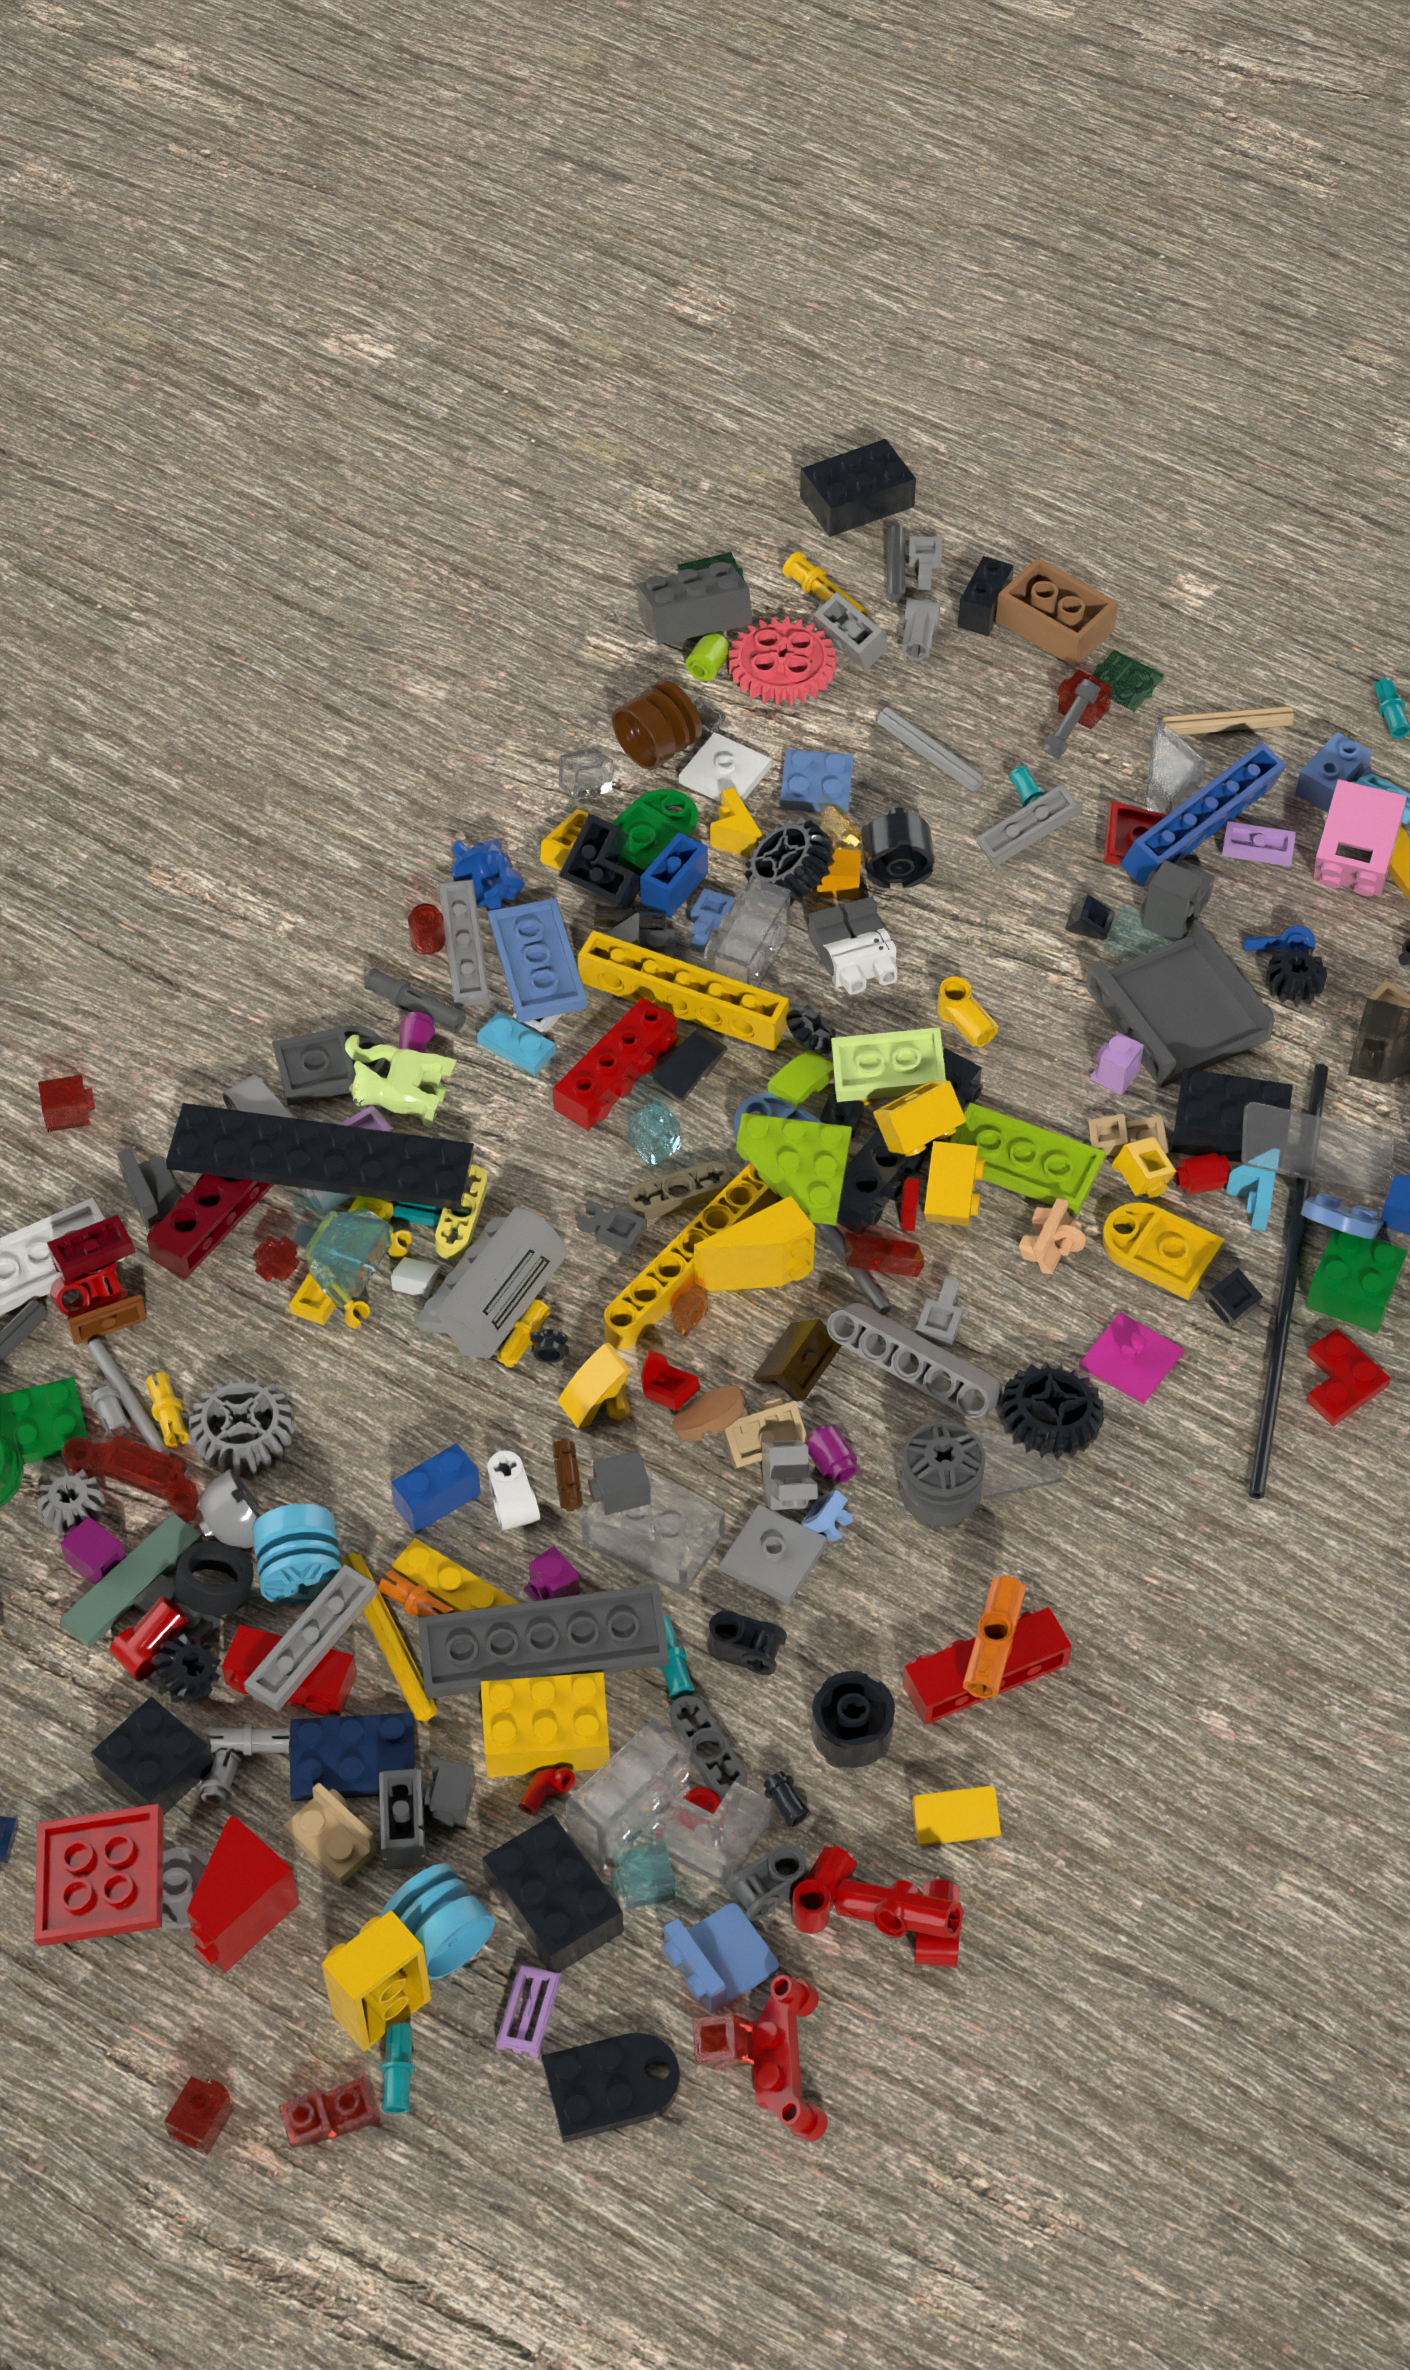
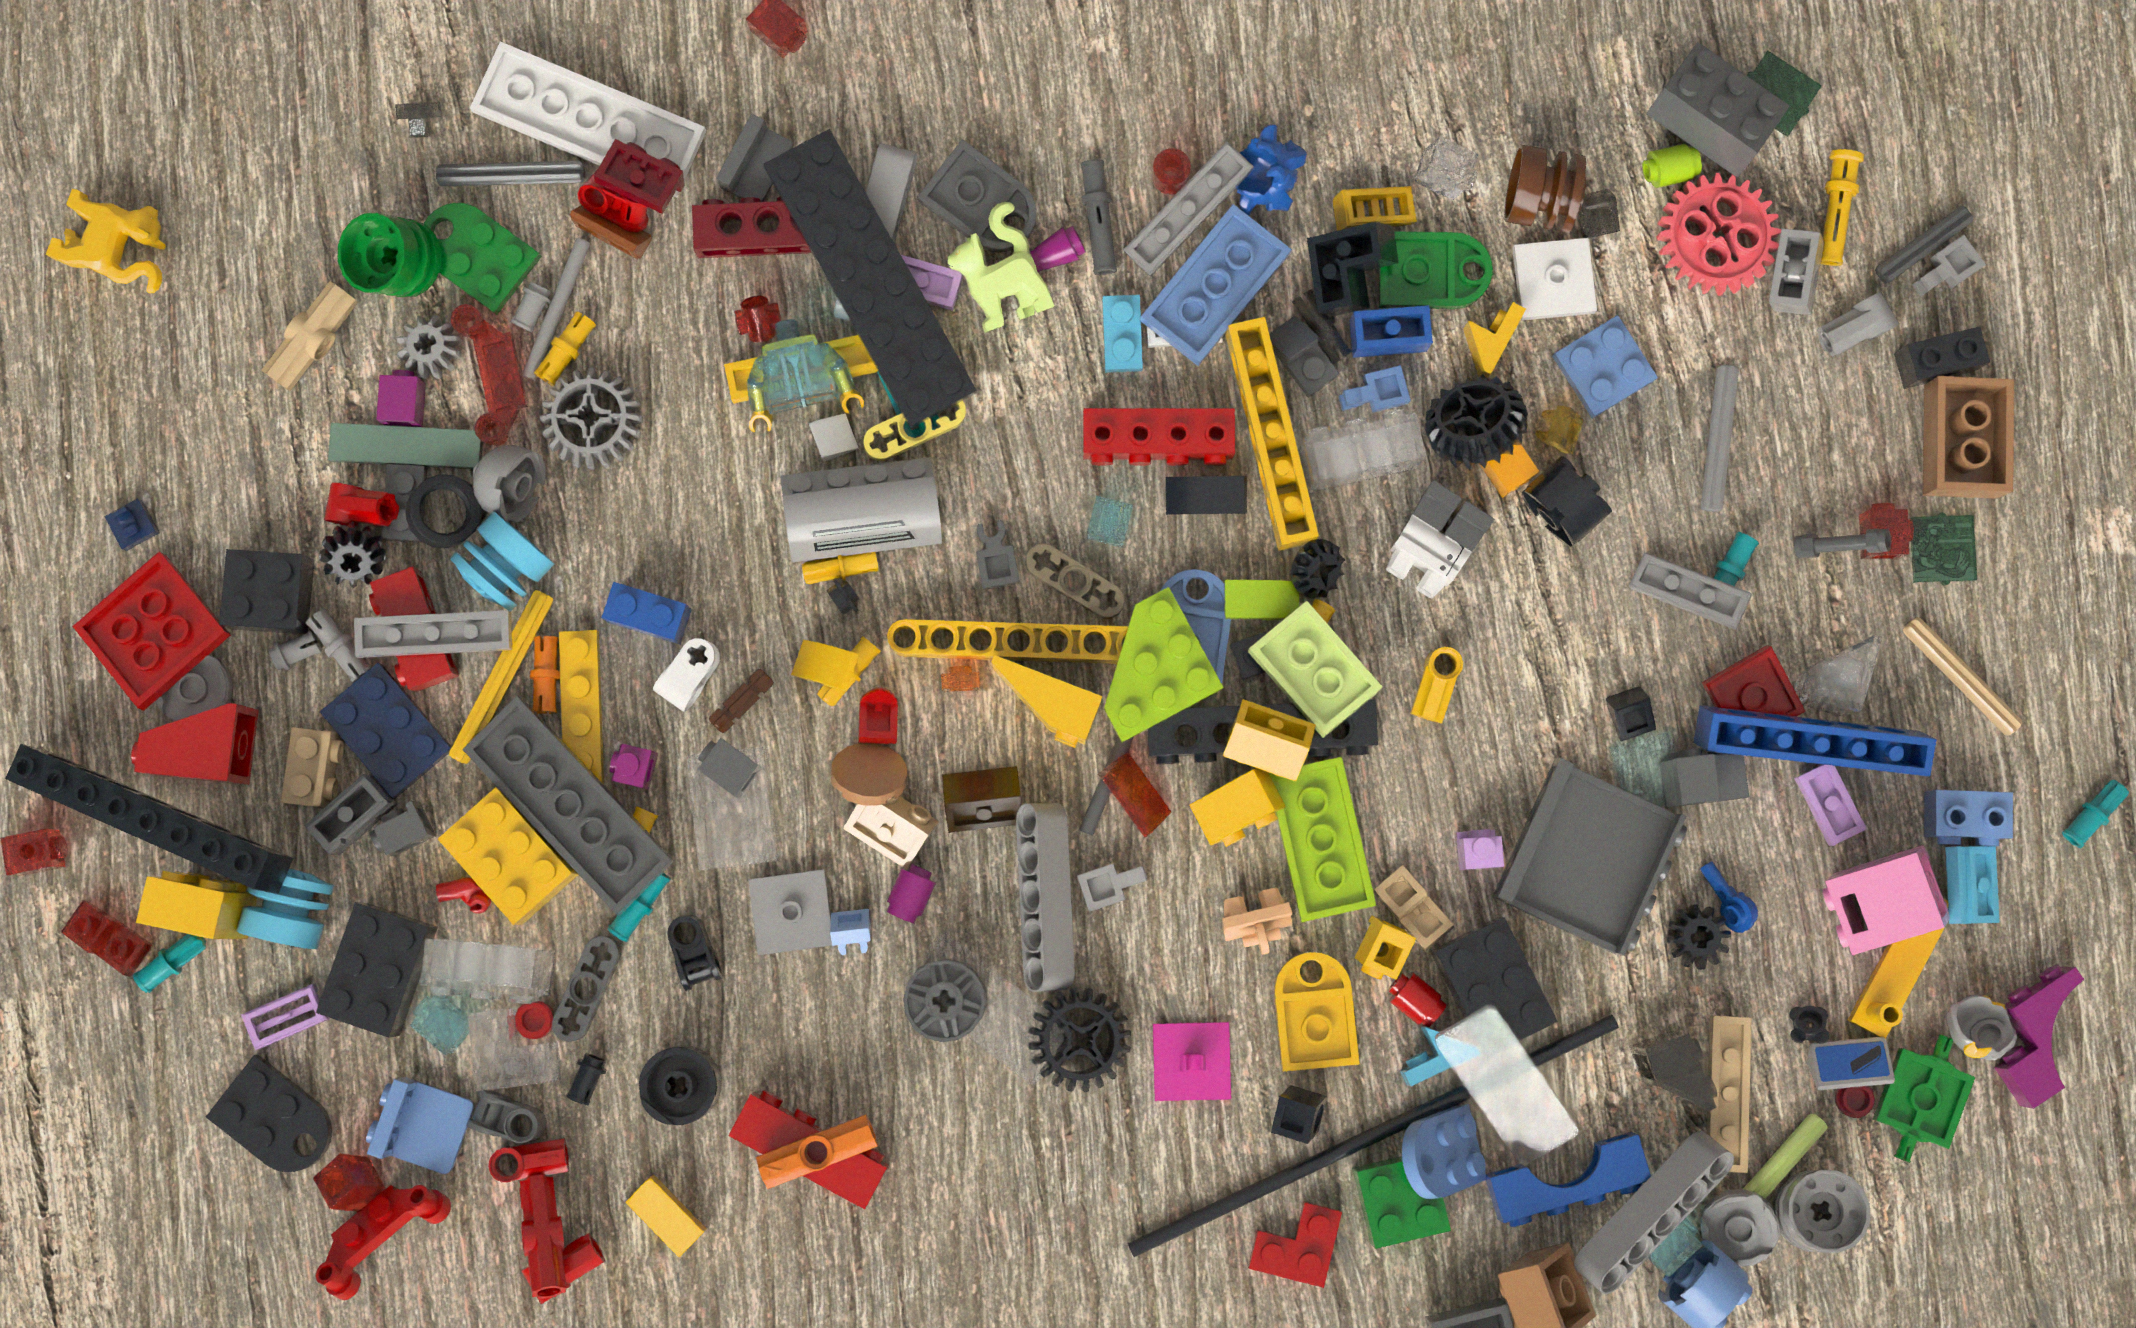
camera: 50 degrees right, 30 degrees up
(260, 1965) = (150, 819): none -> black brick
(787, 1475) = (858, 878): light grey brick -> none
(857, 487) = (1989, 142): black brick -> none
(909, 1204) = (1199, 781): red tile -> none

